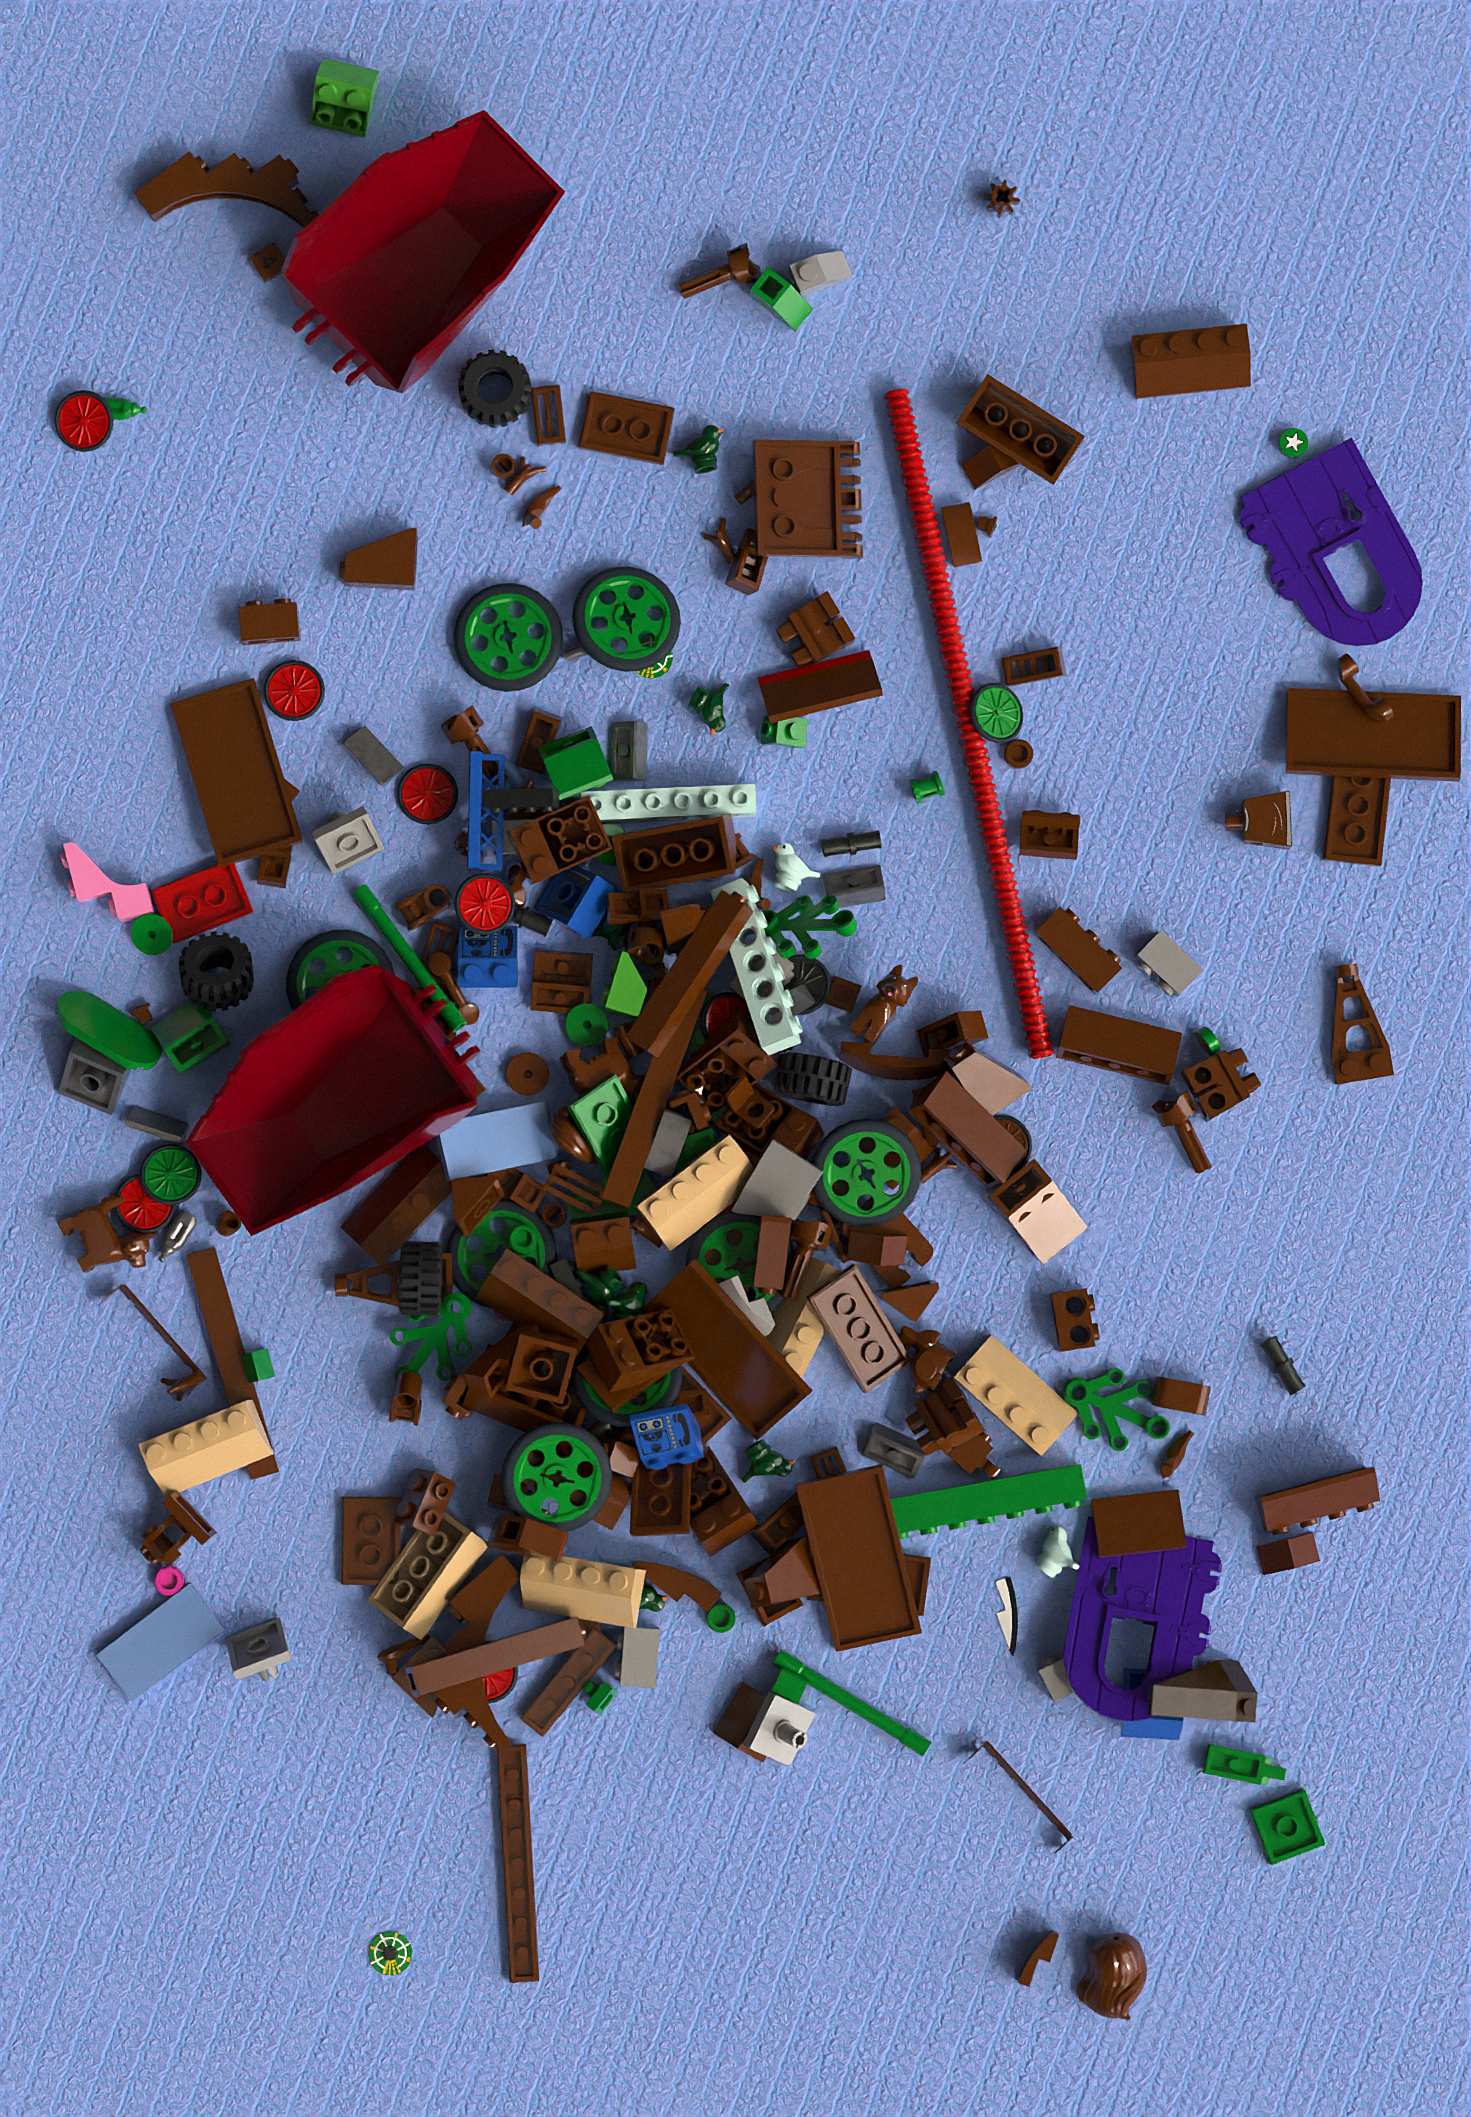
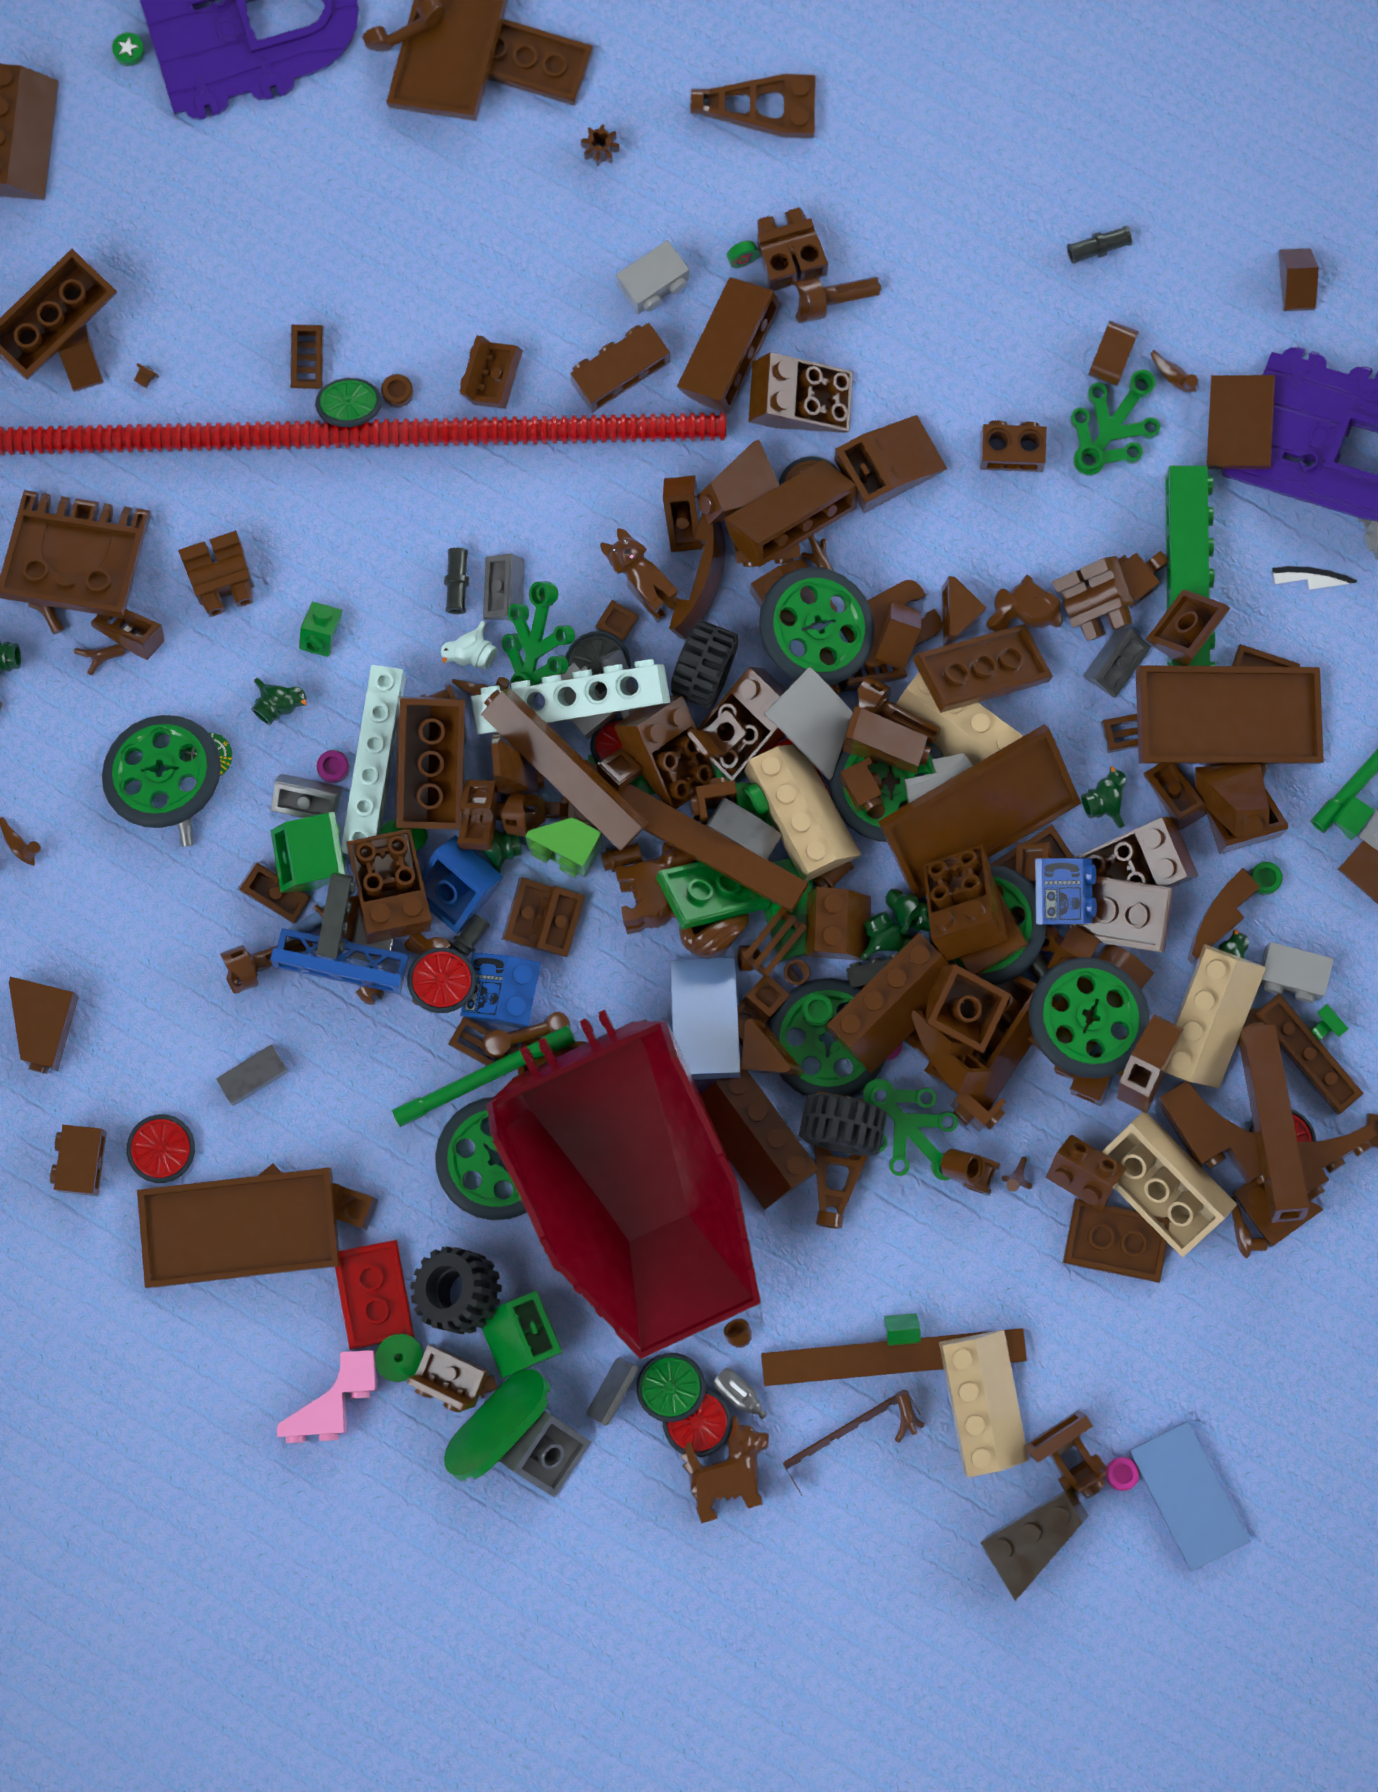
camera: 75 degrees left, 5 degrees down
(95, 1510) = (1032, 1540): none -> dark brown wedge
(140, 981) = (448, 1379): none -> bracket
(259, 1650) = (1218, 1385): light grey tile -> none
(347, 839) = (338, 1117): light grey tile -> none
(408, 1442) = (1017, 1178): none -> bar
(422, 906) = (429, 1051): reddish brown piece -> none
(427, 794) = (306, 1024): red wheel -> none
(478, 663) = (175, 940): wedge -> none
(527, 1074) = (636, 972): reddish brown piece -> none
(587, 1024) = (595, 898): green piece -> none
(661, 769) = (333, 766): none -> magenta tile
(698, 1148) = (756, 799): none -> green tile
(703, 1022) = (619, 769): none -> reddish brown tile
(728, 1241) = (862, 786): none -> reddish brown brick
(820, 686) = (280, 579): reddish brown tile -> none
(926, 787) = (412, 490): green bush -> none
(930, 1503) = (1187, 626): none -> reddish brown slope
(961, 534) = (147, 402): reddish brown slope -> none
(1015, 1395) = (1083, 523): tan slope -> none
(1055, 1553) = (1257, 512): light aqua animal -> none
(1085, 1118) = (799, 394): none -> slope
(1264, 821) = (522, 151): reddish brown torso -> none
(1285, 900) = (601, 137): none -> reddish brown gear
(1317, 1499) = (1246, 233): reddish brown slope -> none

